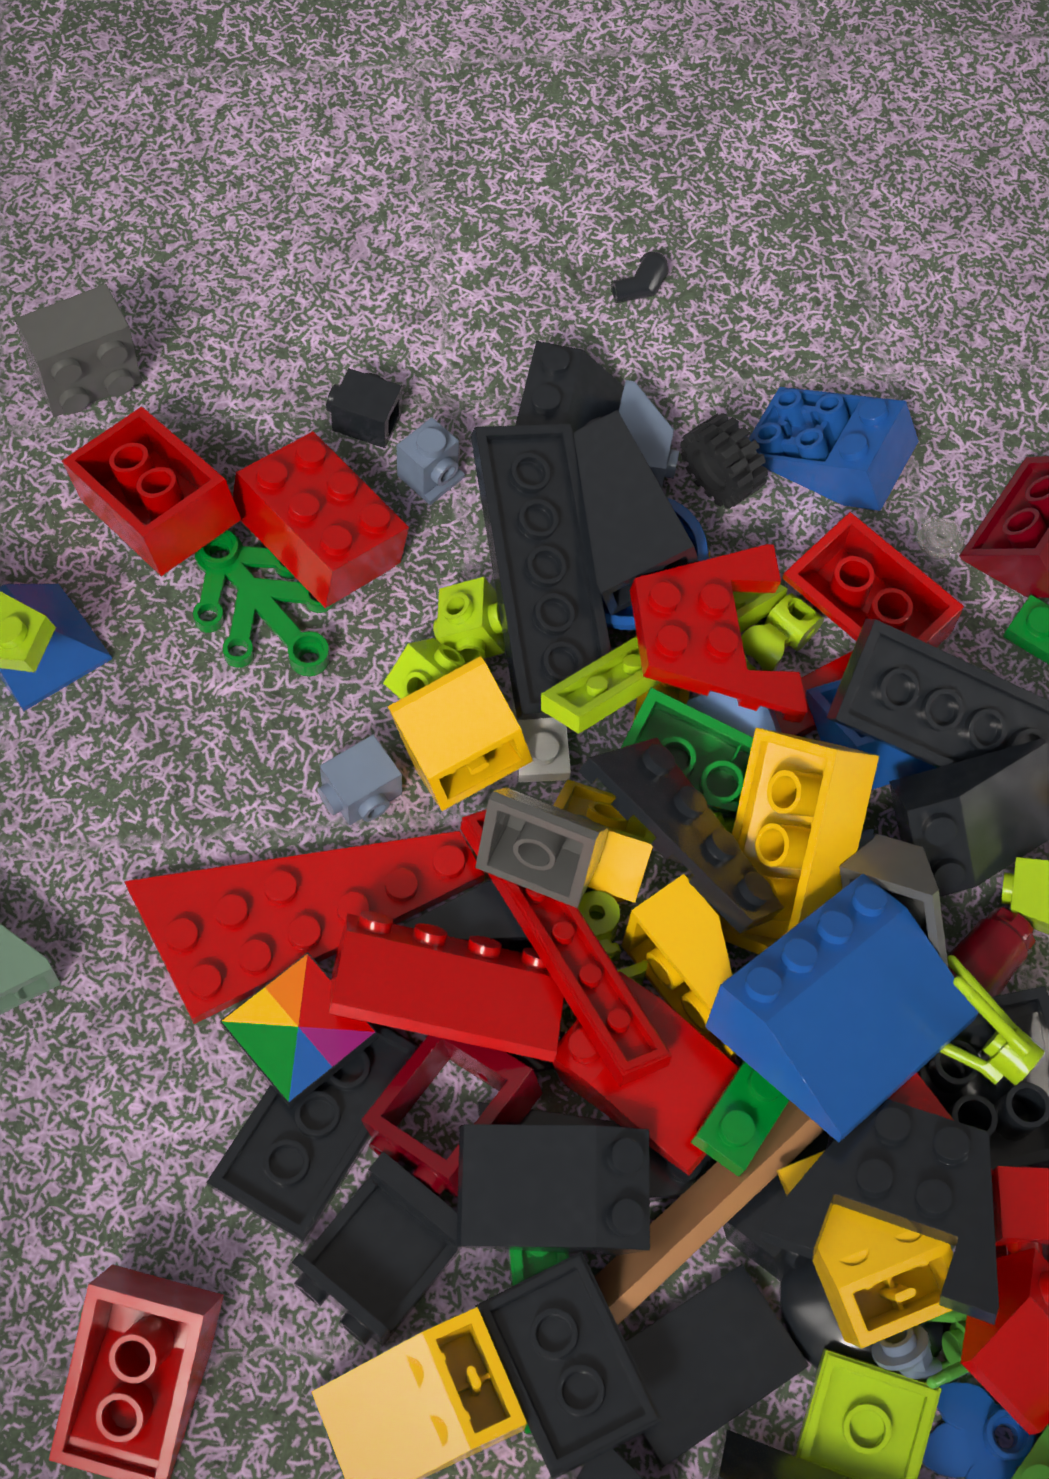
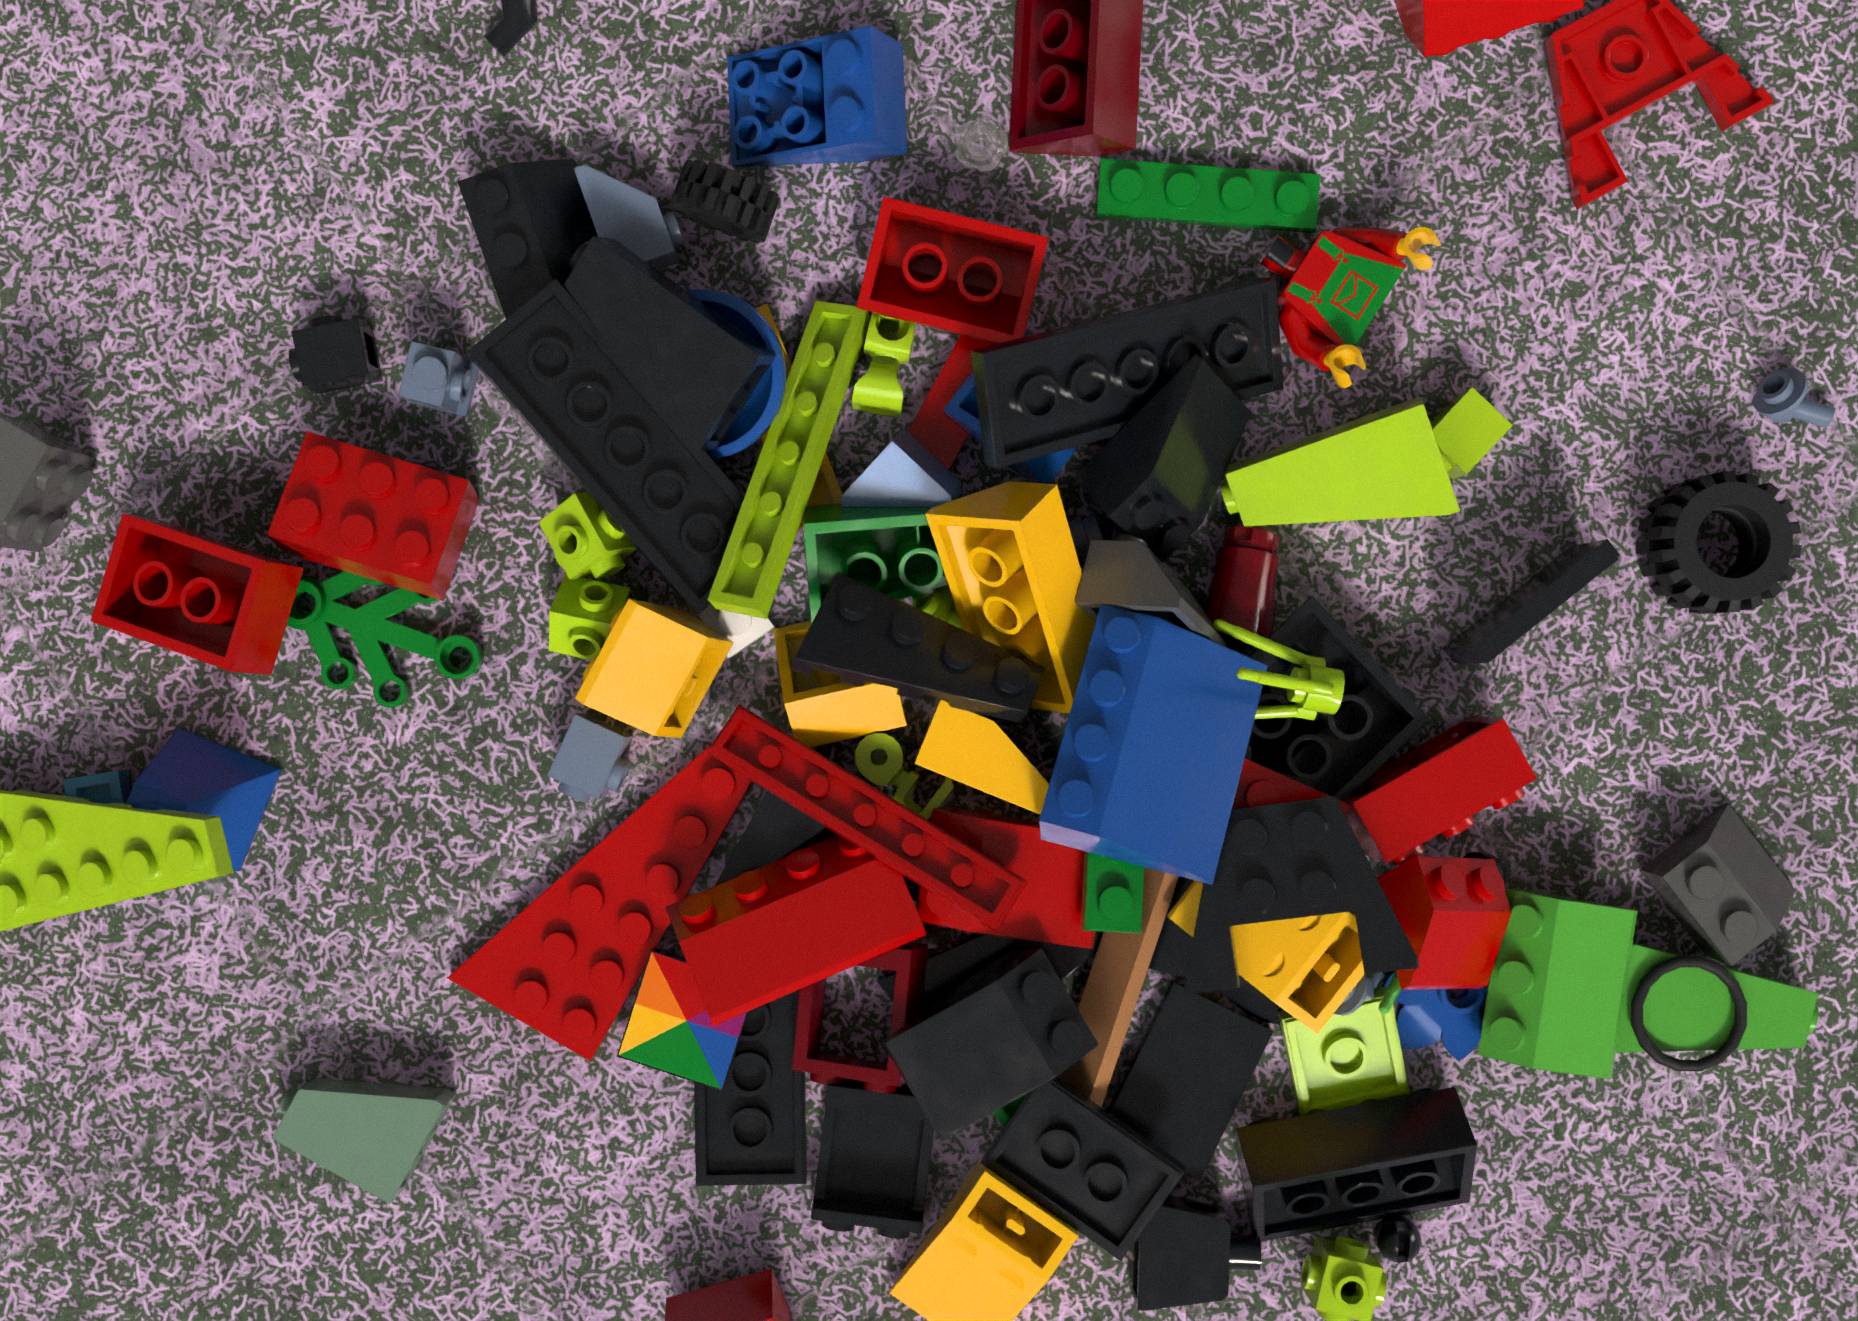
camera: 30 degrees left, 25 degrees up
(540, 846) = (797, 749): dark grey slope -> none
(693, 632) = (808, 438): red wing -> none

